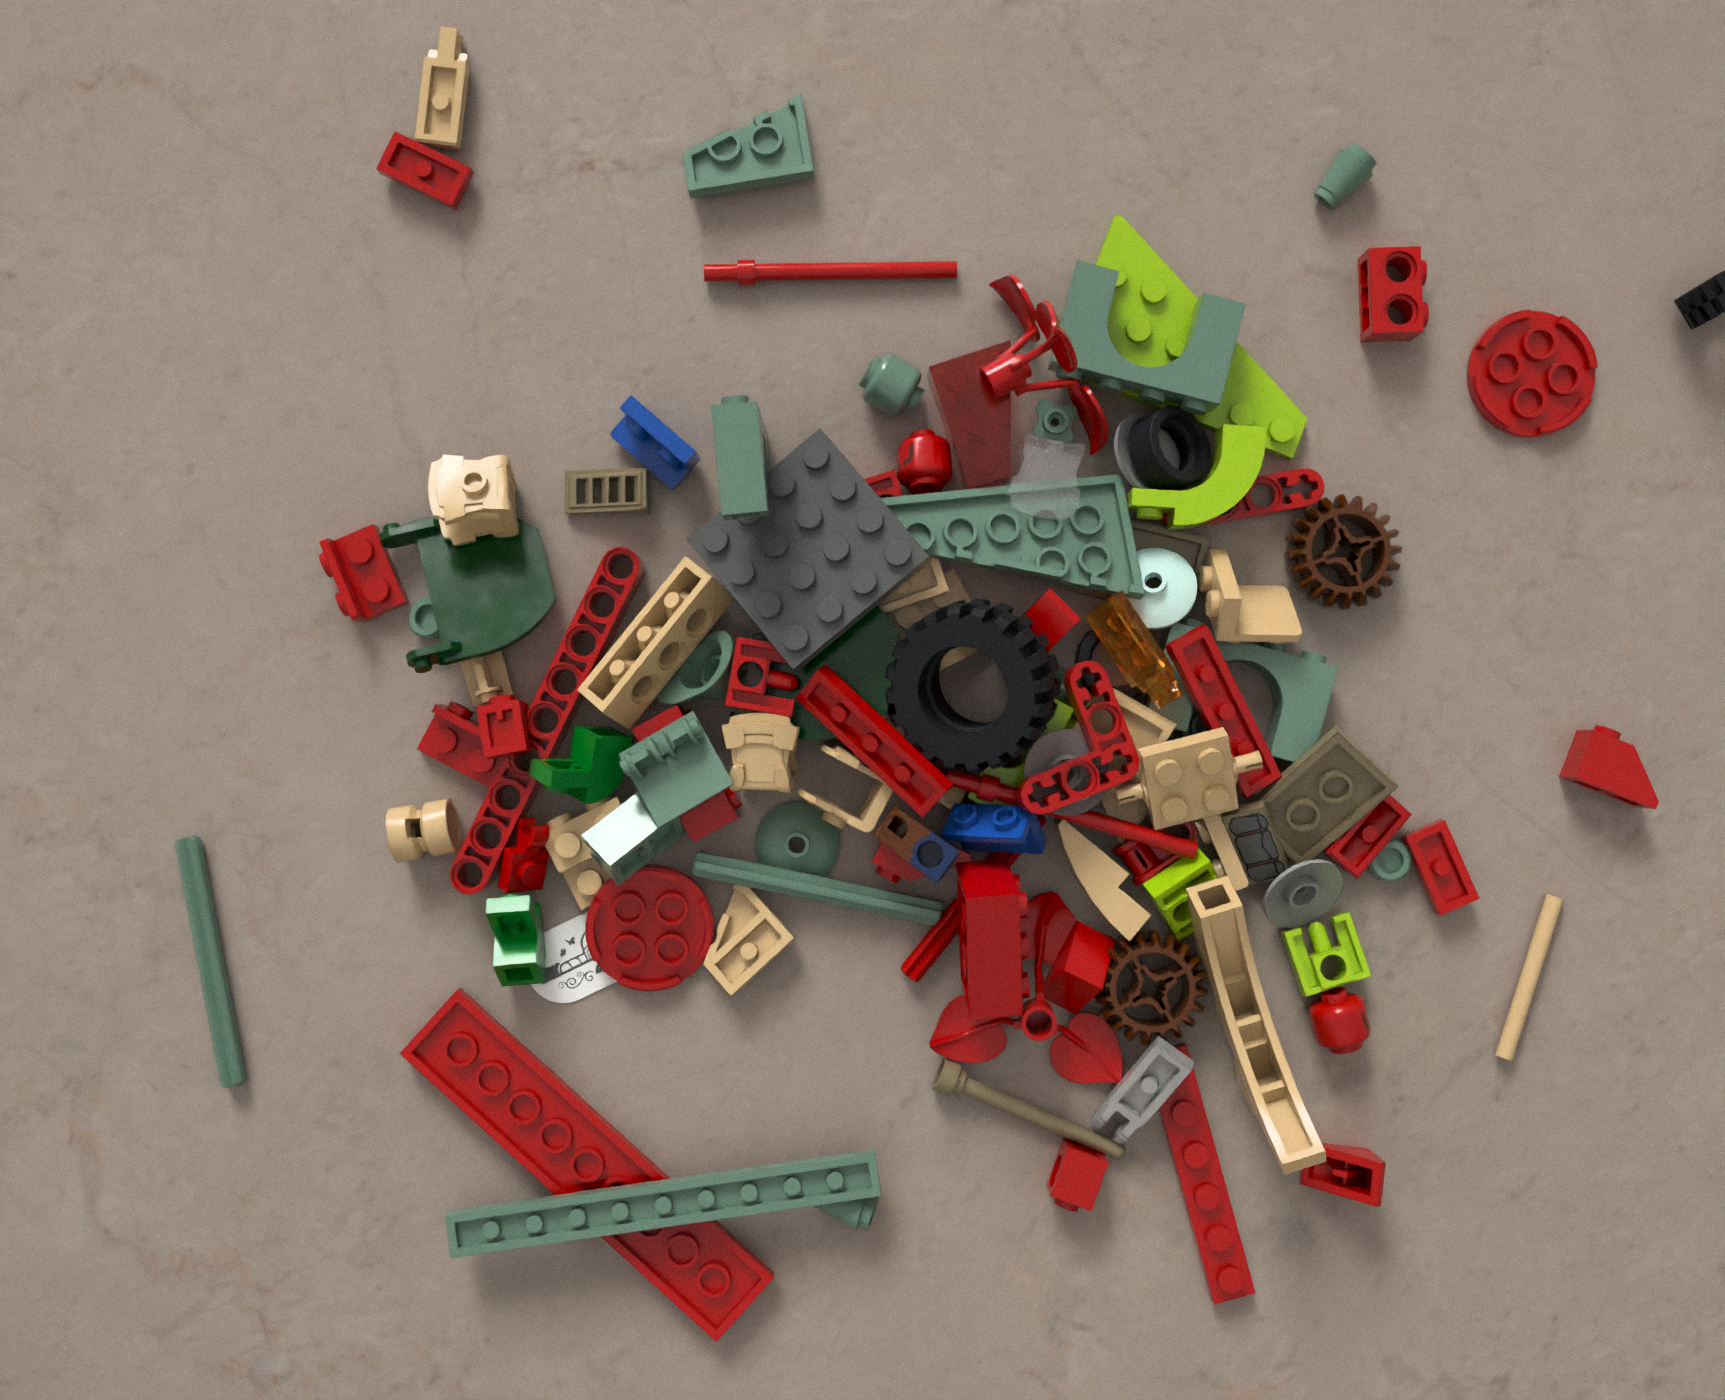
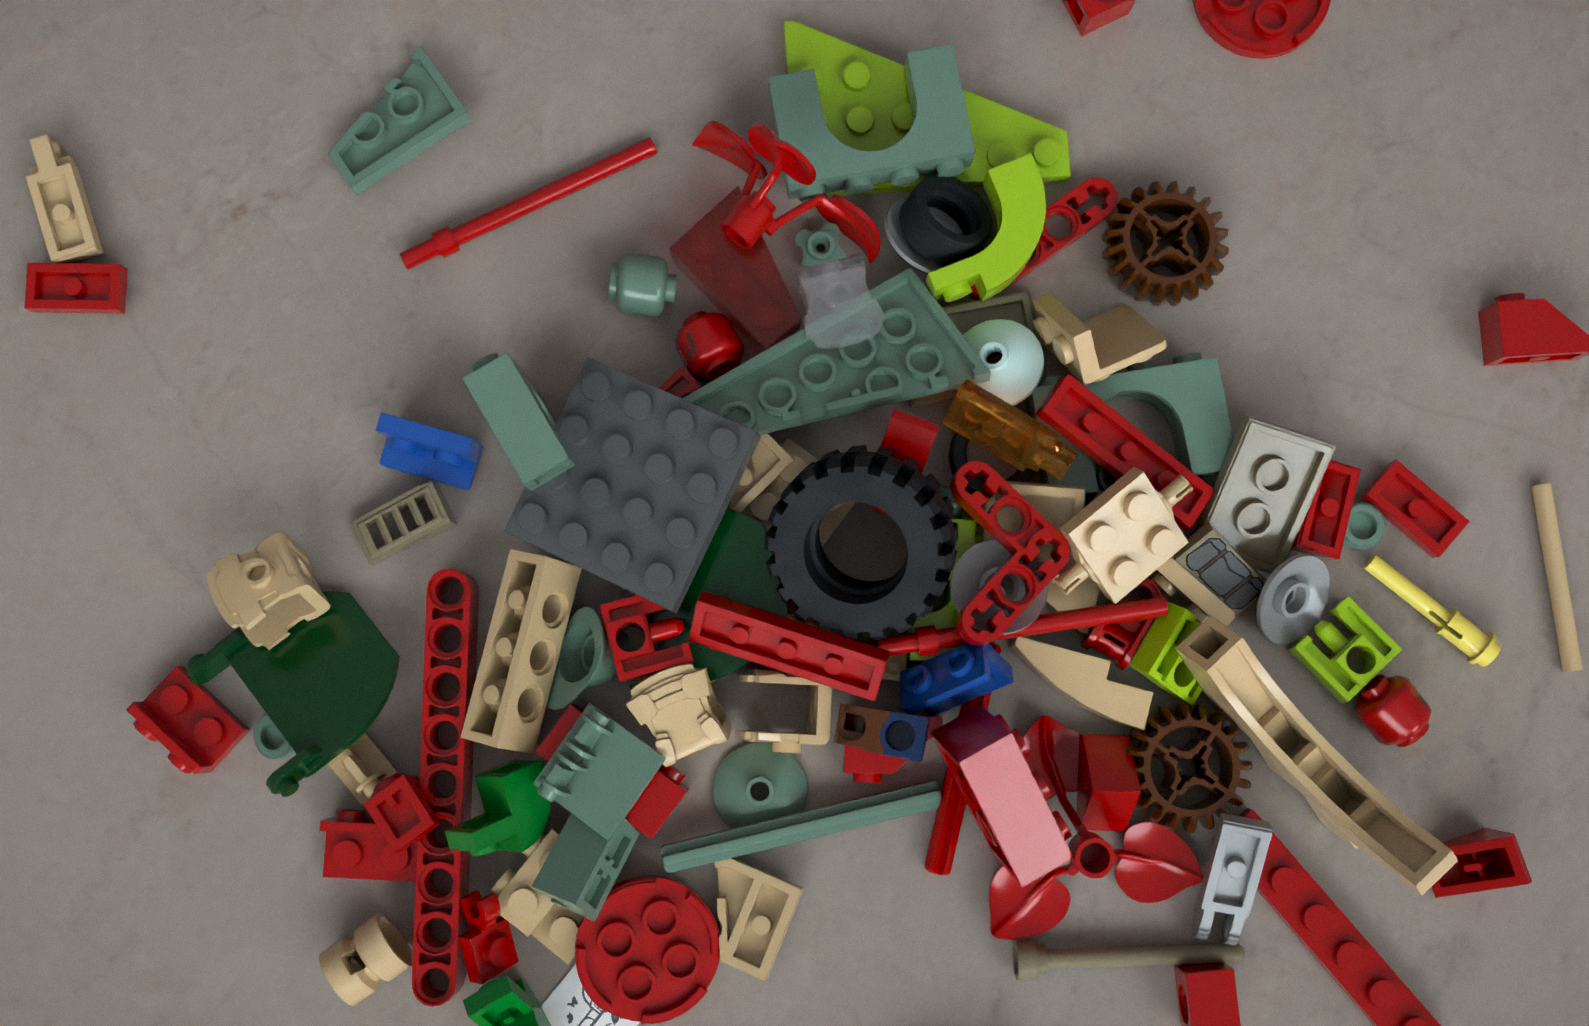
camera: 30 degrees left, 5 degrees down
(1422, 974) = (1453, 626): none -> light yellow pin

